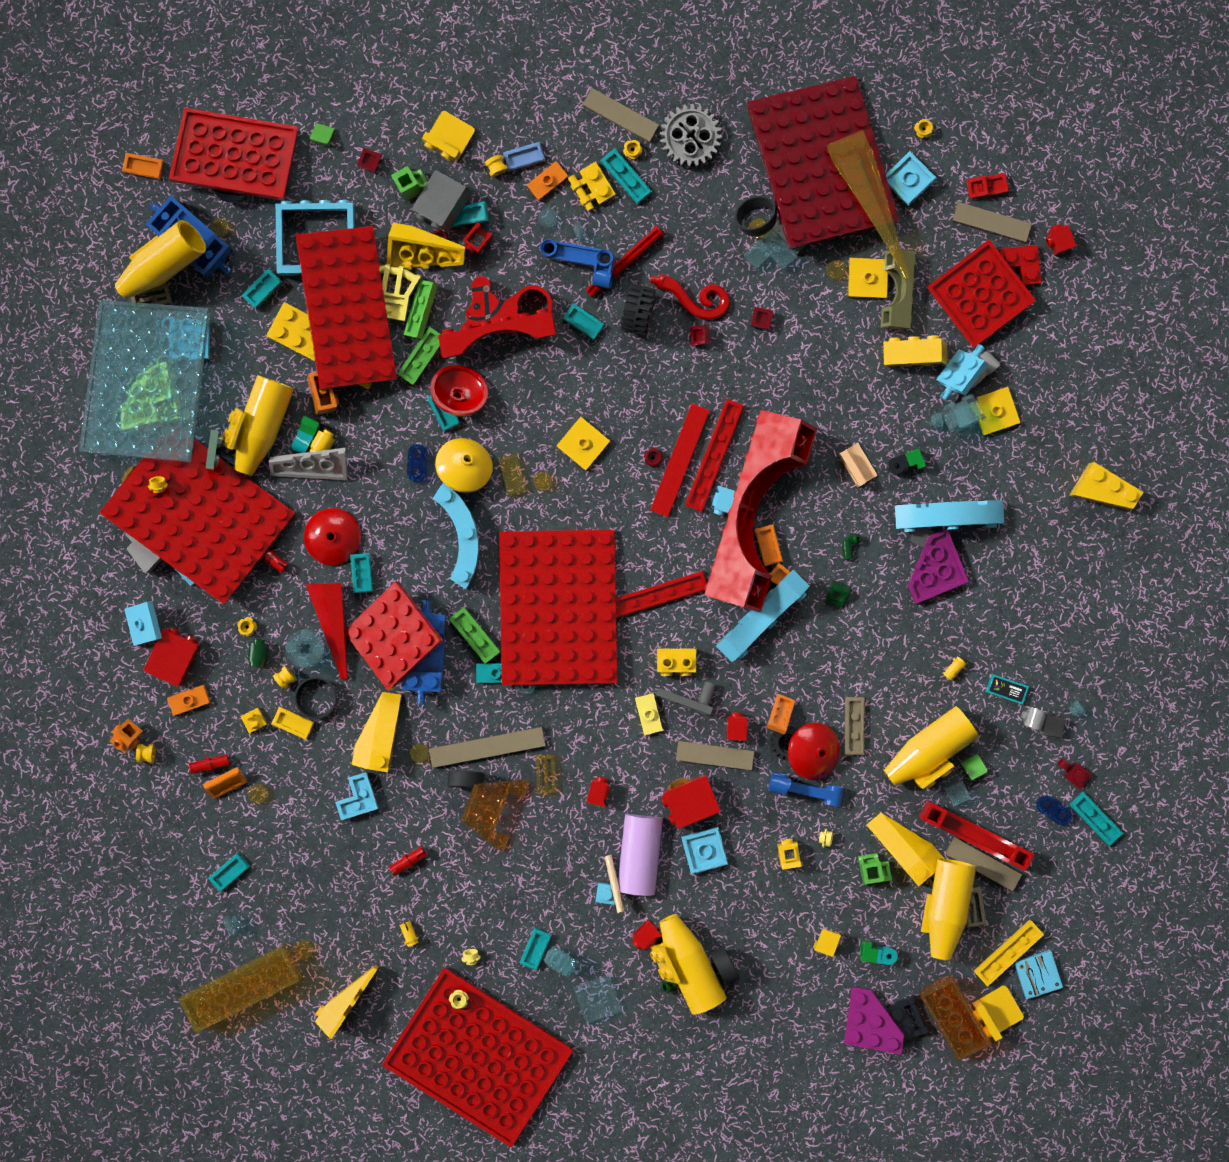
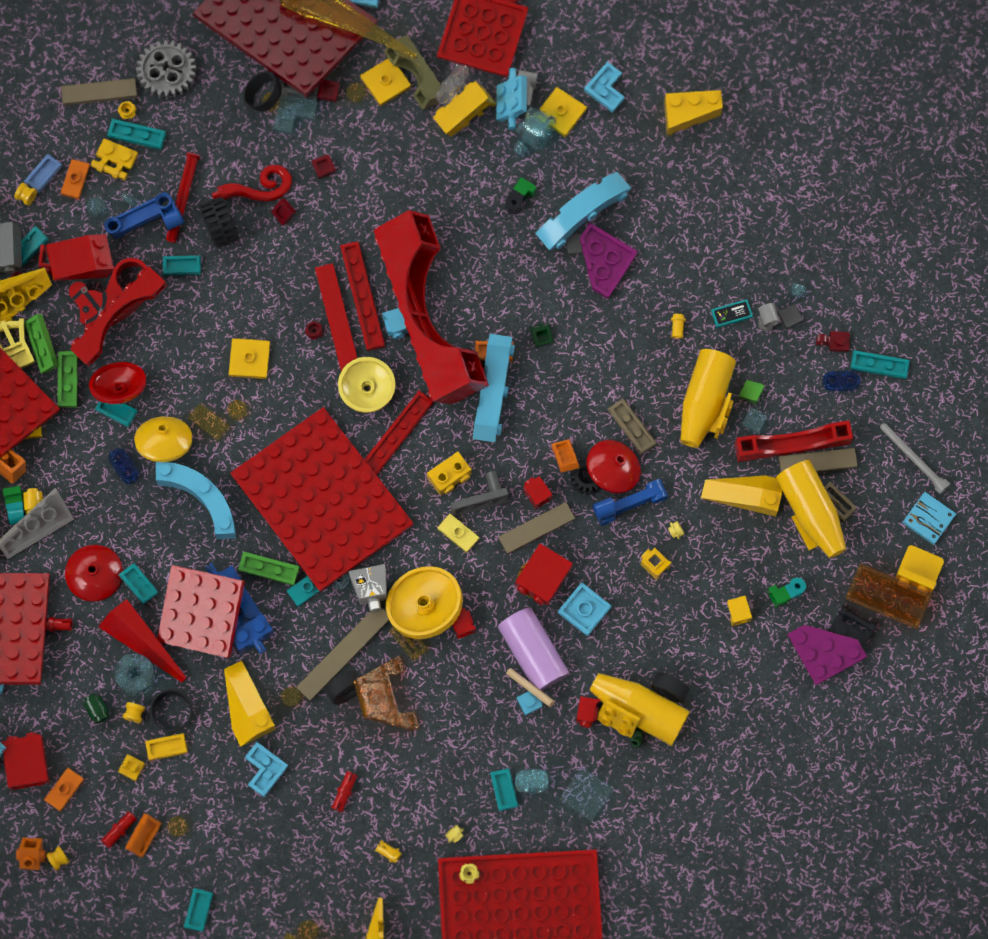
camera: 40 degrees left, 15 degrees down
(242, 626) = (67, 694): yellow plate -> none
(501, 258) = (80, 258): none -> red slope
(545, 709) = (370, 586): none -> light grey torso
(575, 739) = (424, 602): none -> yellow dish
(676, 538) = (362, 373): none -> light yellow dish
(768, 545) = (457, 333): orange plate -> none
(814, 253) = (329, 90): none -> dark red plate
(849, 543) = (521, 289): dark green arm -> none
(857, 465) = (482, 225): light nougat panel -> none
(872, 870) = (733, 527): bright green brick -> none
(920, 325) = (452, 84): none -> clear piece
(1008, 952) = (891, 517): yellow plate -> none
(1044, 415) = (601, 87): none -> medium azure plate
(1068, 953) = (939, 483): none -> light grey piece

